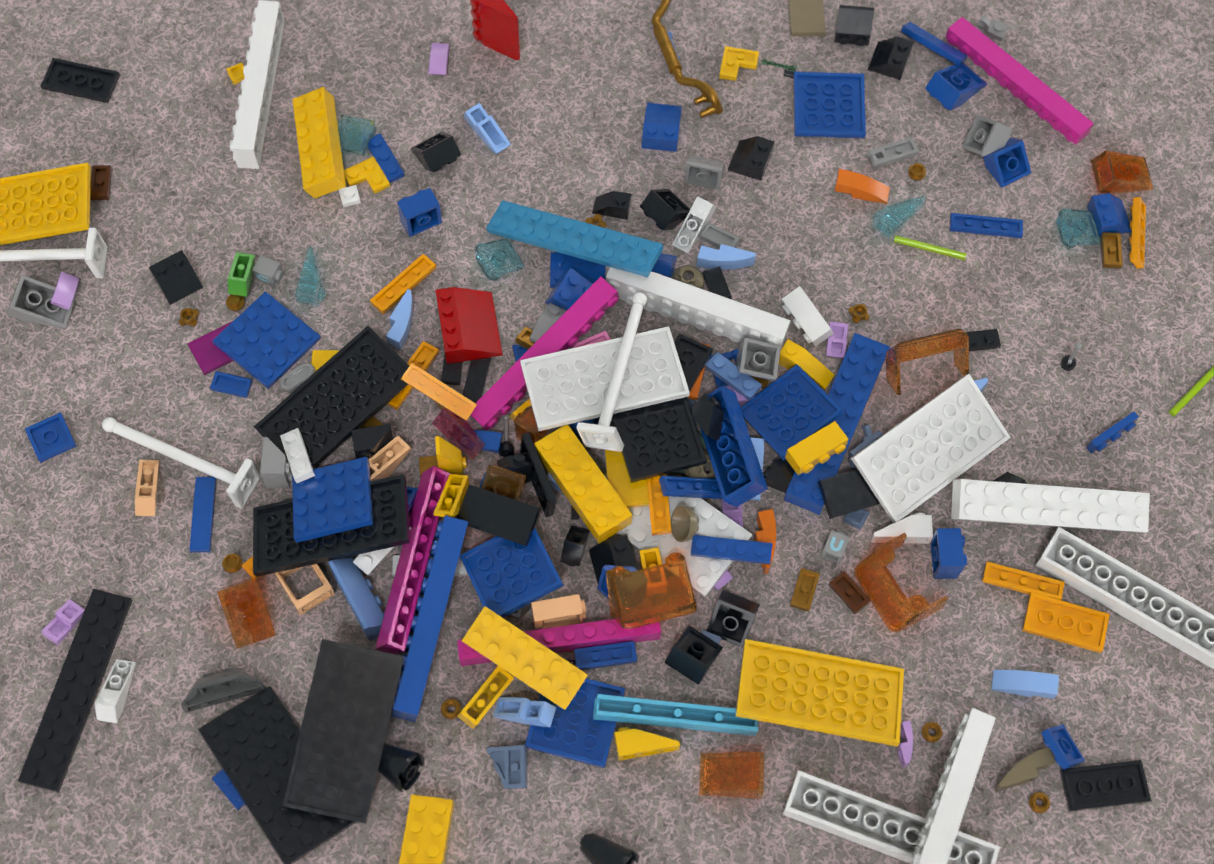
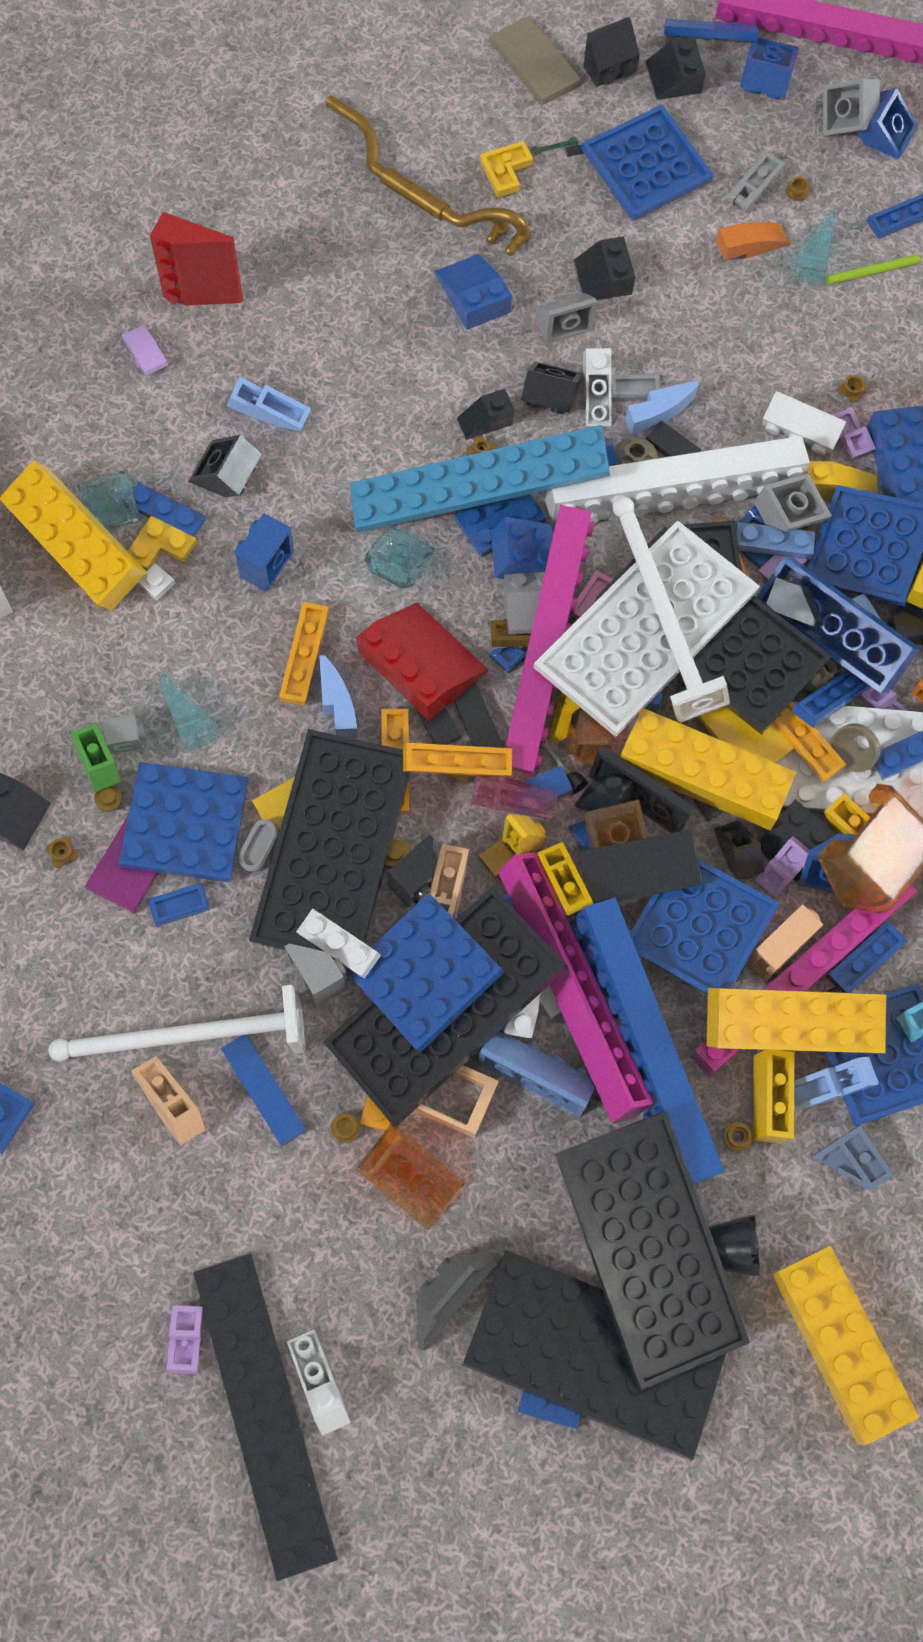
camera: 35 degrees left, 5 degrees up
(590, 573) = (783, 867): none -> lavender slope

